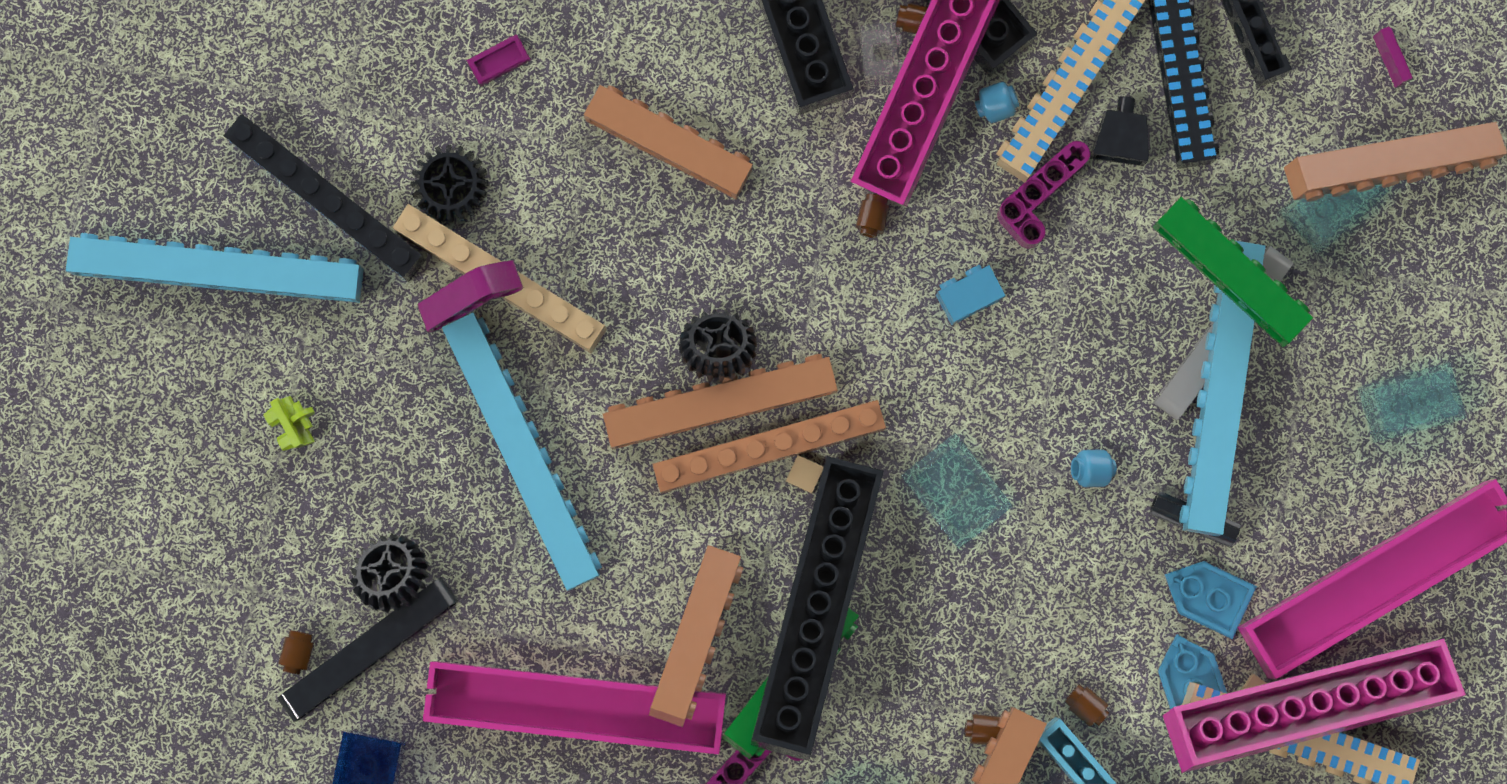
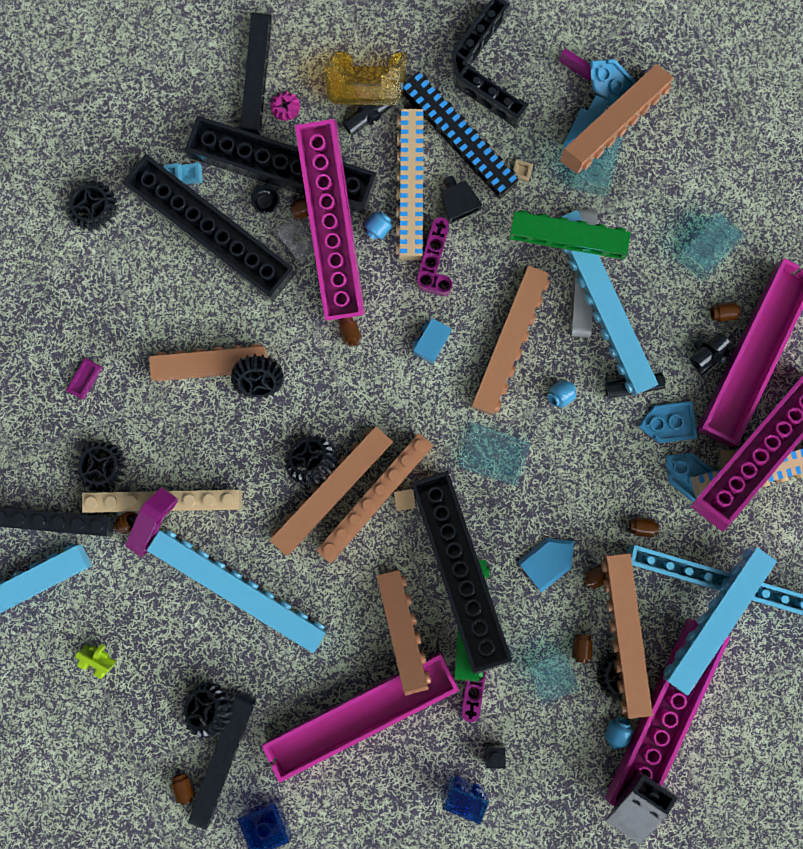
camera: 30 degrees left, 0 degrees up
(437, 275) = (125, 522): none -> reddish brown brick
(719, 197) = (257, 376): none -> black gear
(936, 670) = (548, 562): none -> dark azure tile
(1071, 358) = (510, 340): none -> nougat brick
(1231, 149) = (523, 170): none -> tan tile
(1319, 540) = (710, 353): none -> black pin
(1357, 134) = (586, 118): none -> dark azure slope
(1375, 500) = (725, 311): none -> reddish brown brick
(1421, 104) = (610, 79): none -> dark azure tile

